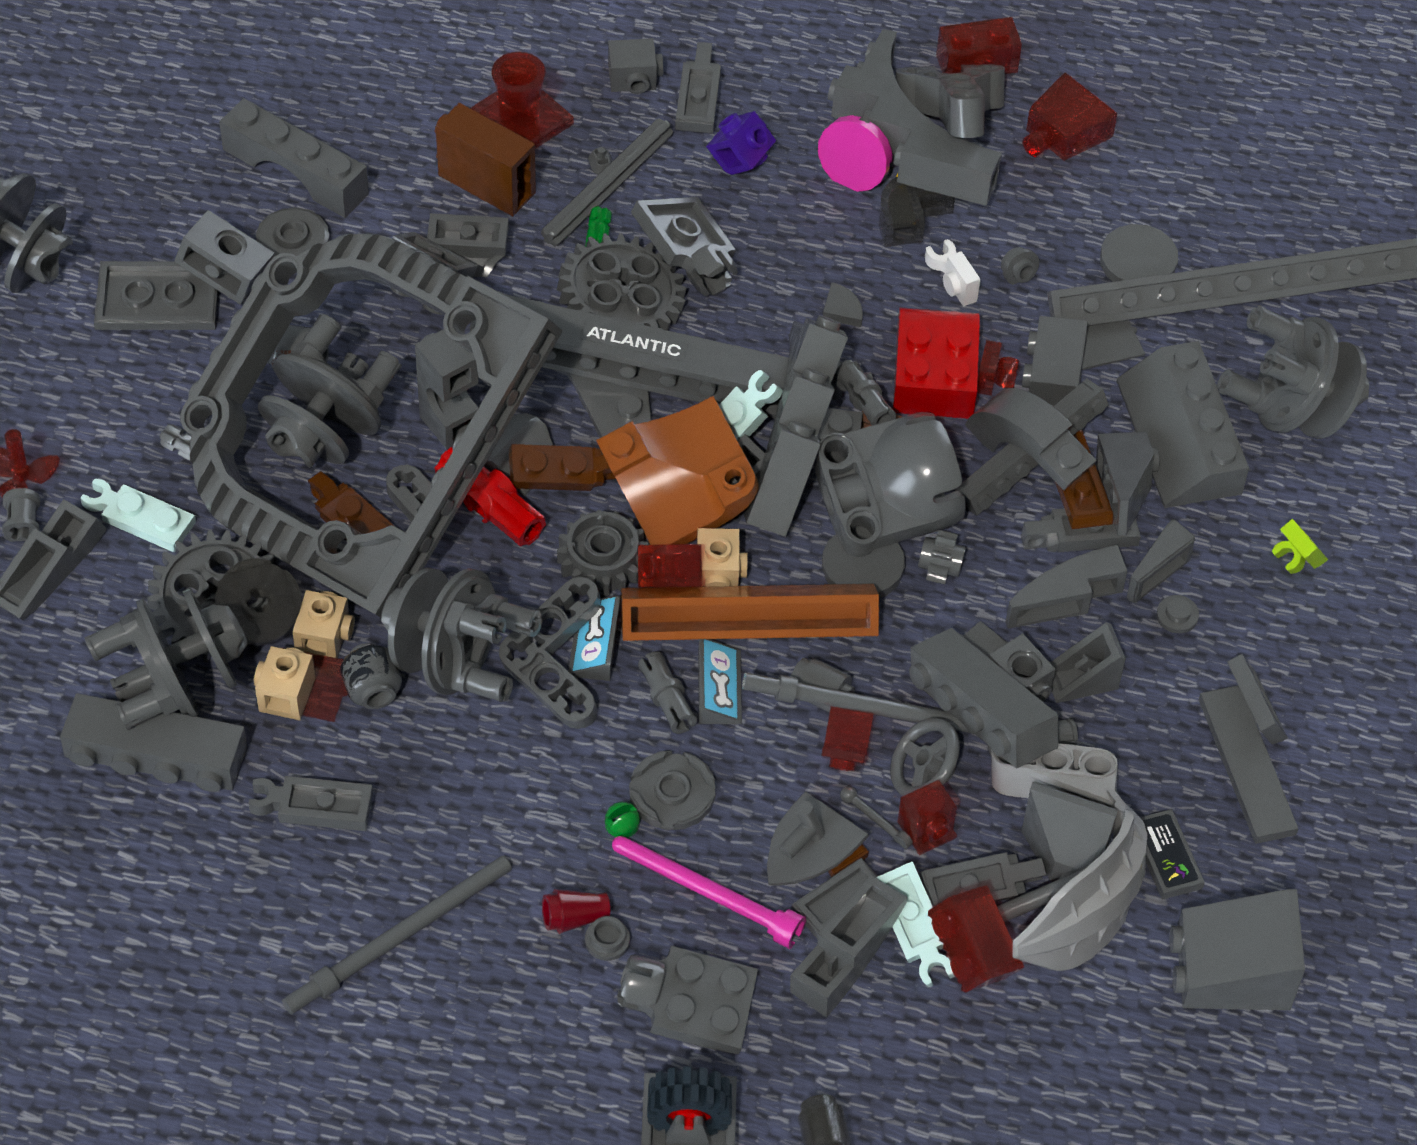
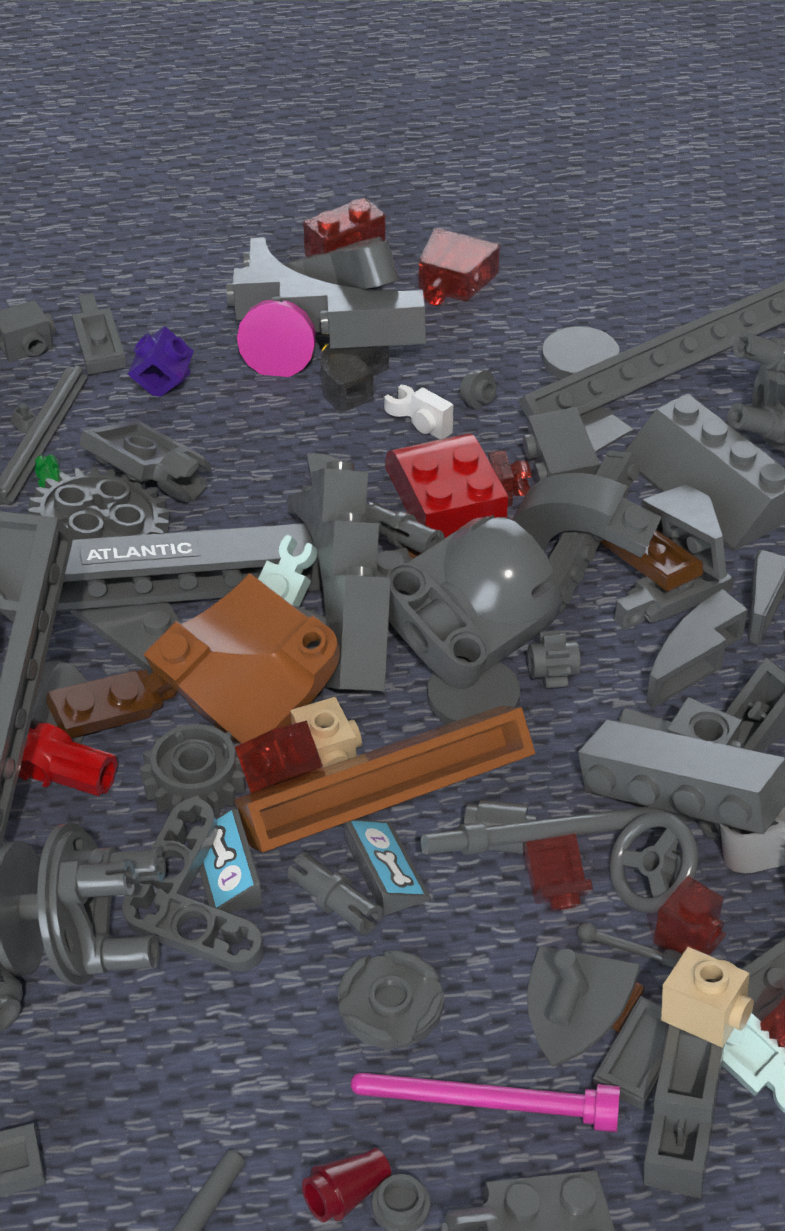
camera: 20 degrees left, 10 degrees down
(624, 824) = (356, 1058): green hinge -> none
(892, 875) = (706, 997): none -> tan brick

